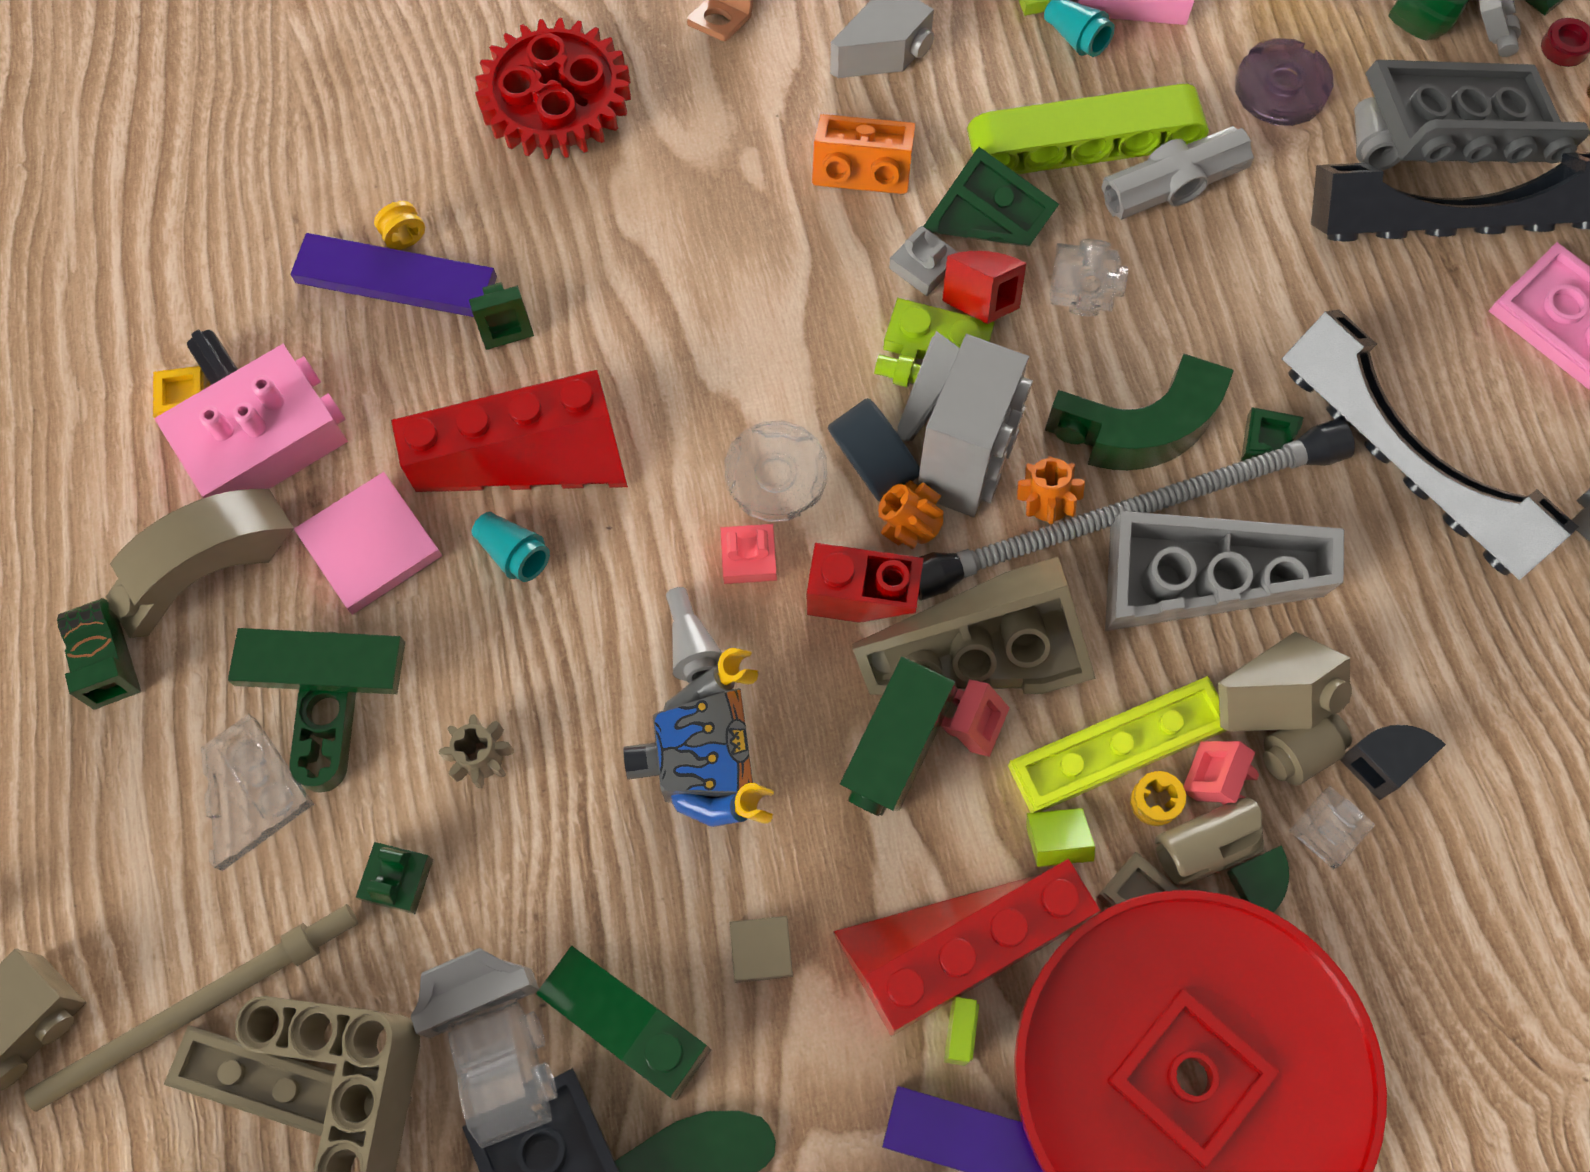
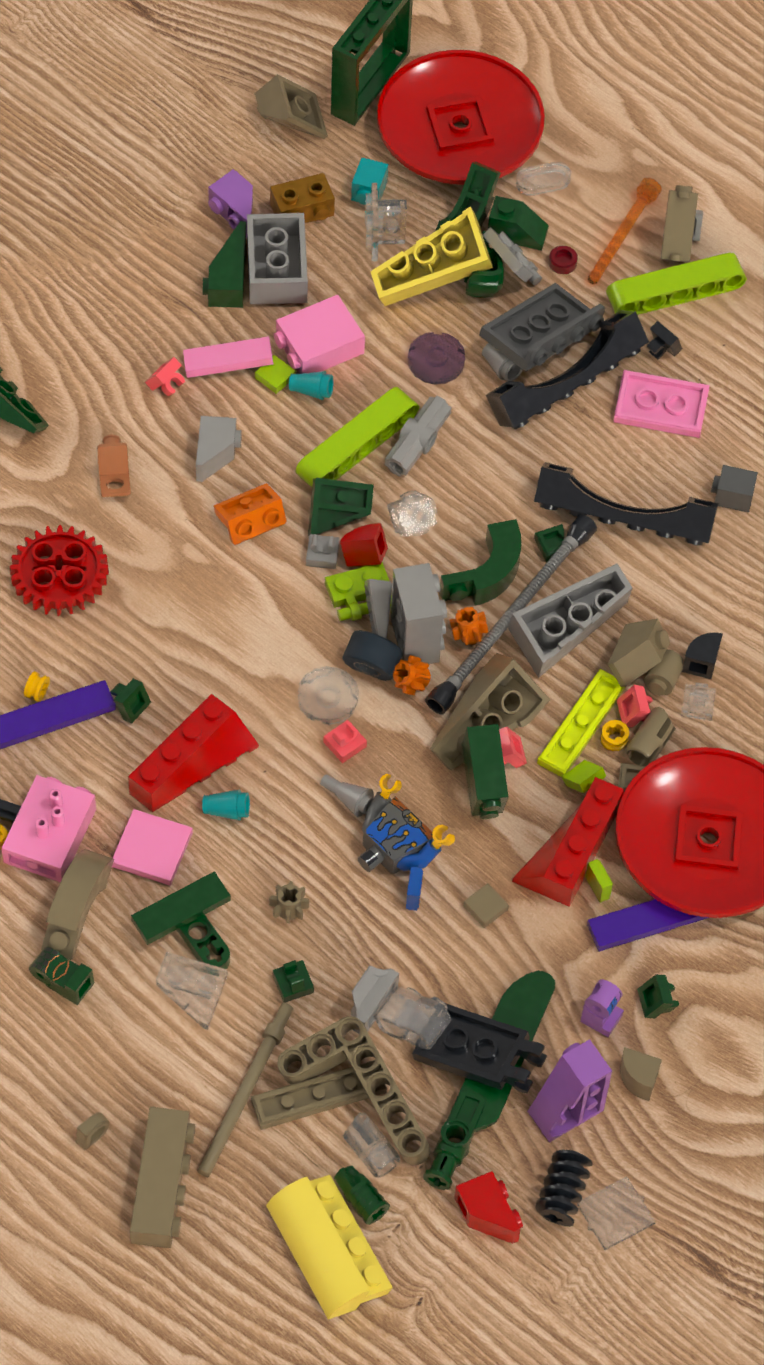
camera: 40 degrees left, 10 degrees down
(624, 1023) = (451, 969): dark green slope -> none
(669, 851) = (414, 888): none -> blue tile
(861, 584) = (413, 720): red slope -> none
(1262, 879) = (682, 739): dark green tile -> none

